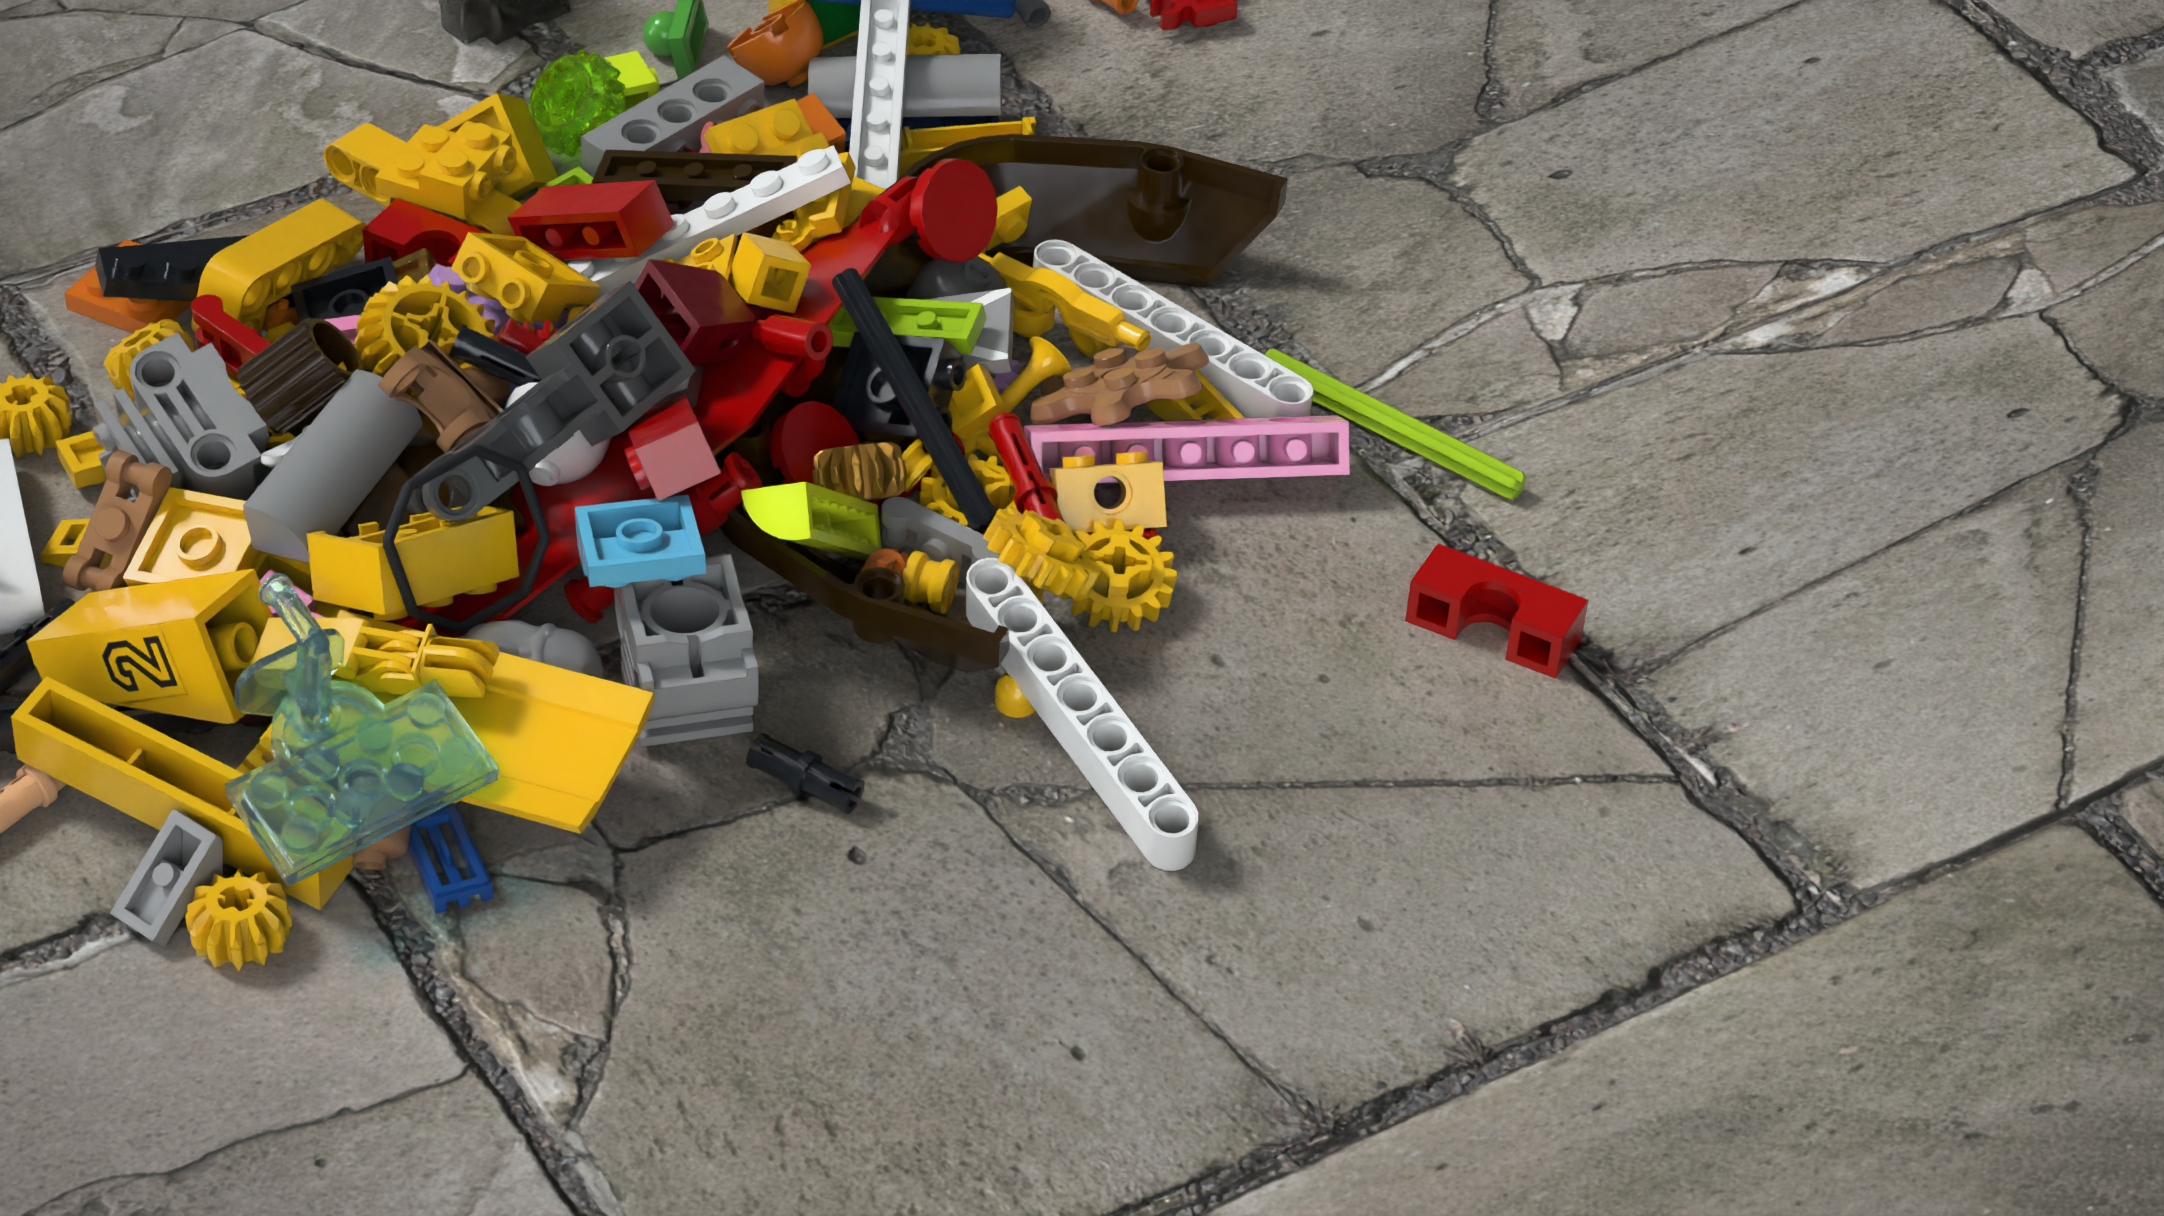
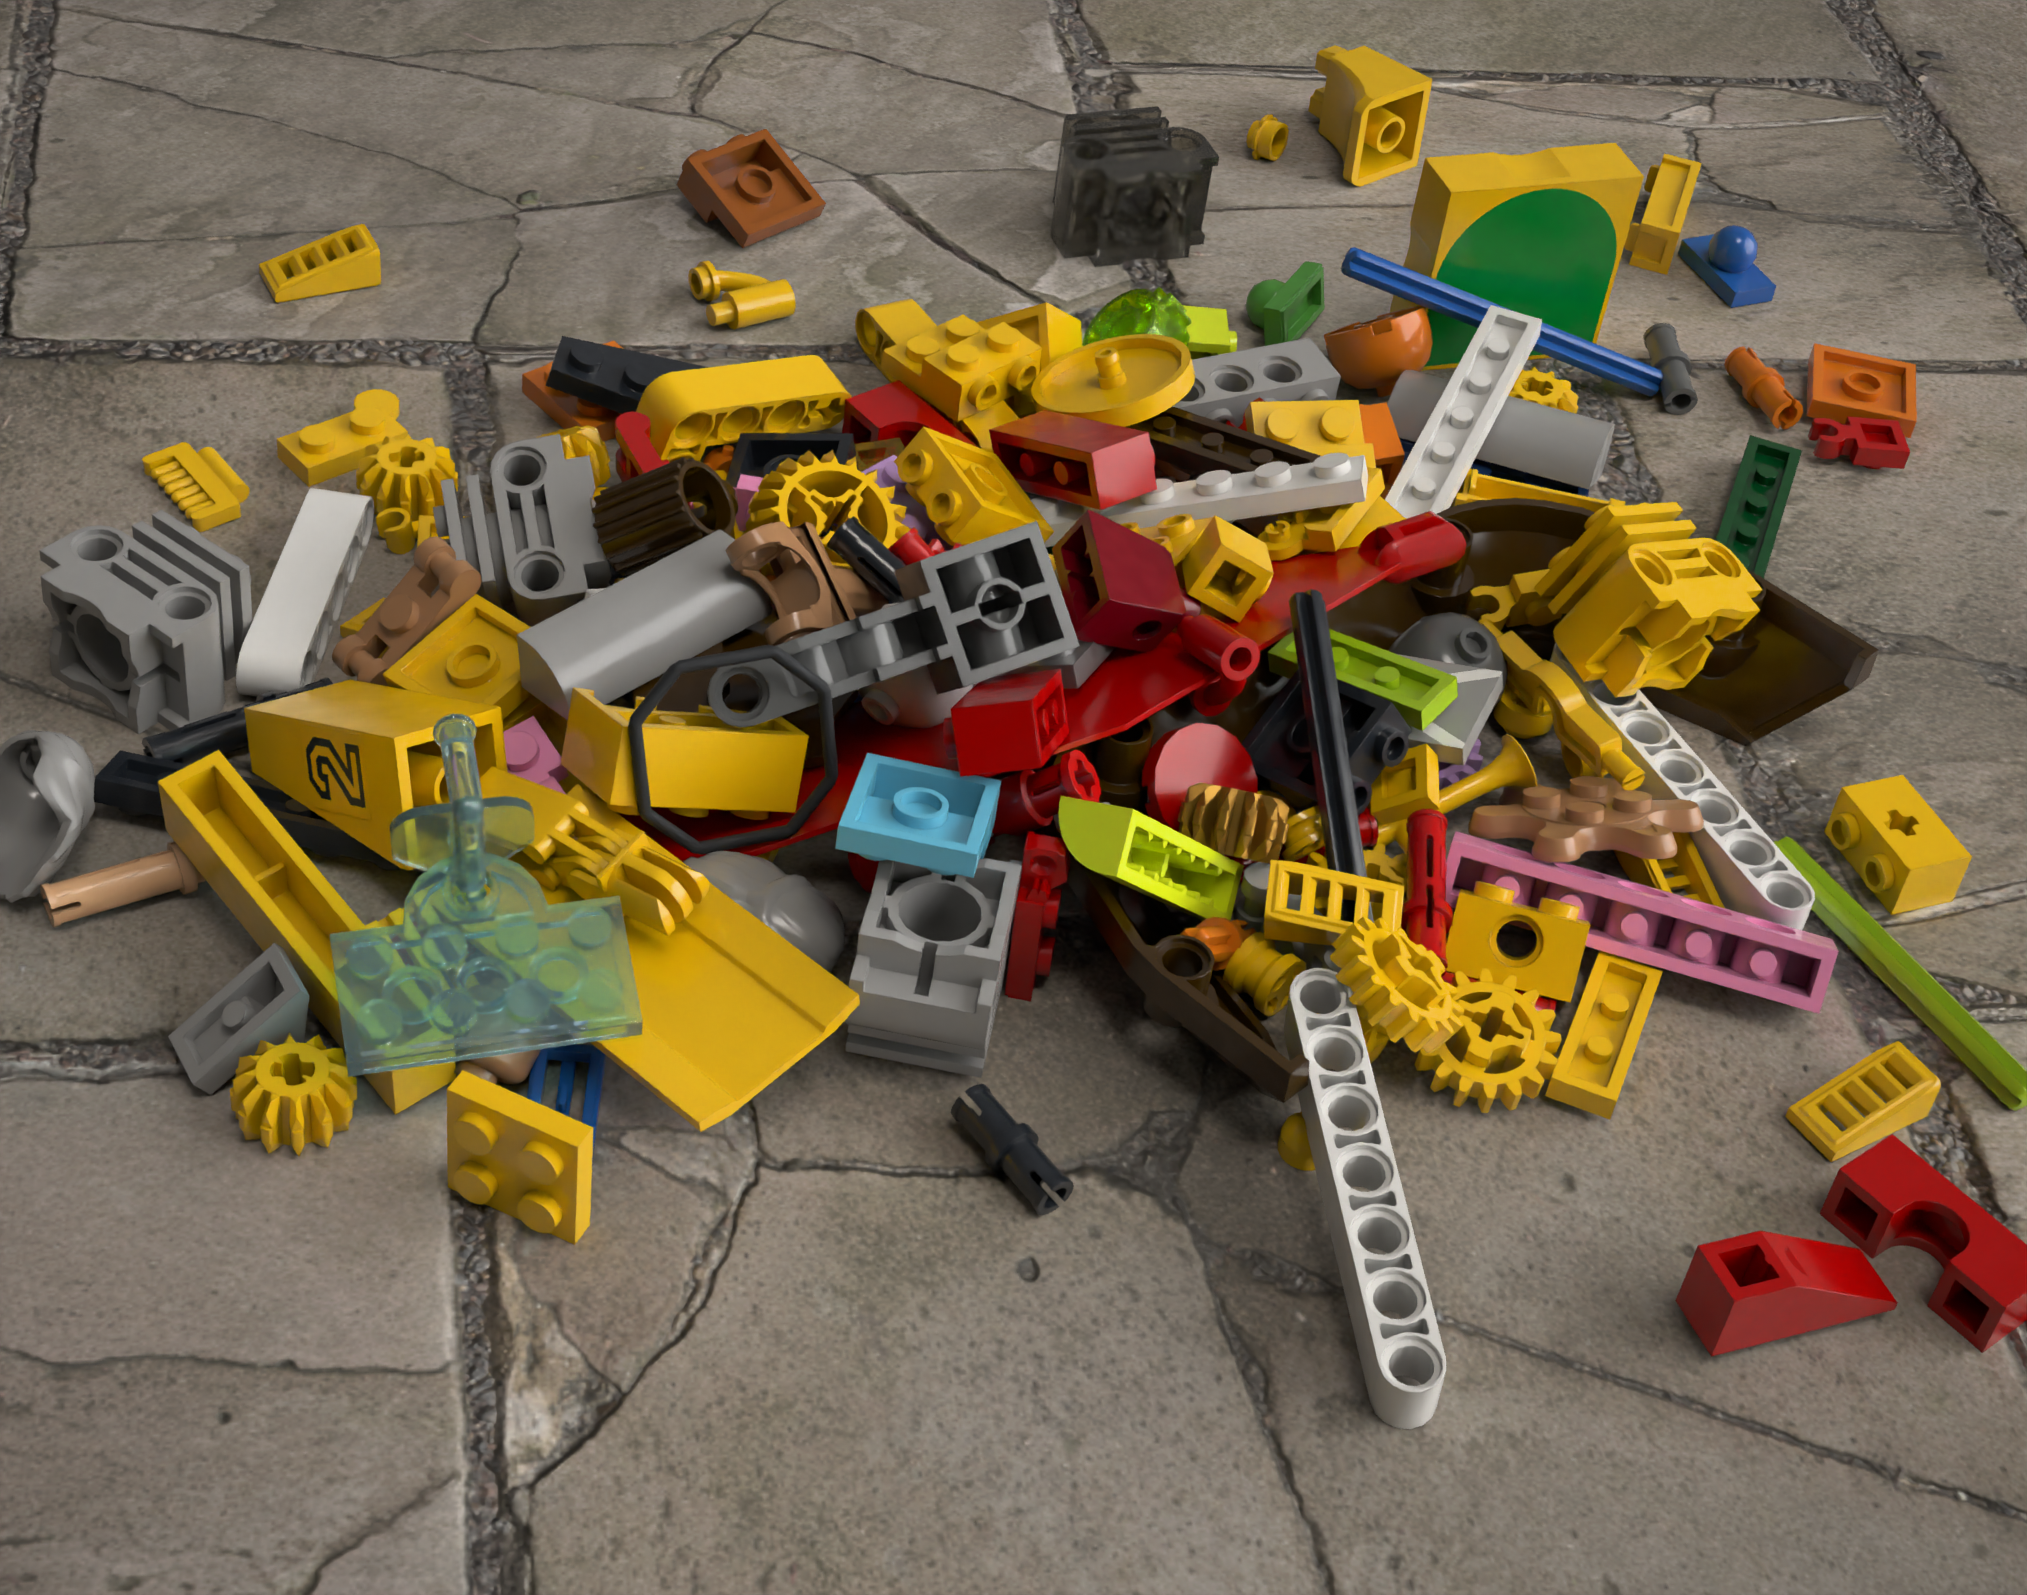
camera: 20 degrees right, 0 degrees up
(40, 458) = (397, 529): none -> yellow hand
(166, 64) = (749, 188): none -> dark orange plate
(223, 167) = (747, 299): none -> yellow plant
(449, 900) = (519, 1157): none -> yellow plate
(587, 142) = (1117, 379): none -> yellow piece
(747, 552) = (1037, 907): none -> red hinge
(944, 497) = (1313, 882): none -> yellow slope
(954, 210) = (1469, 566): red tile -> none
(1095, 193) = (1645, 598): none -> yellow piece
(1135, 85) = (1758, 502): none -> dark green plate
(1199, 542) = (1604, 1034): none -> yellow plate
(1353, 327) = (1897, 844): none -> yellow brick
(1397, 681) = (1776, 1288): none -> red slope
(1431, 516) = (1894, 1075): none -> yellow slope

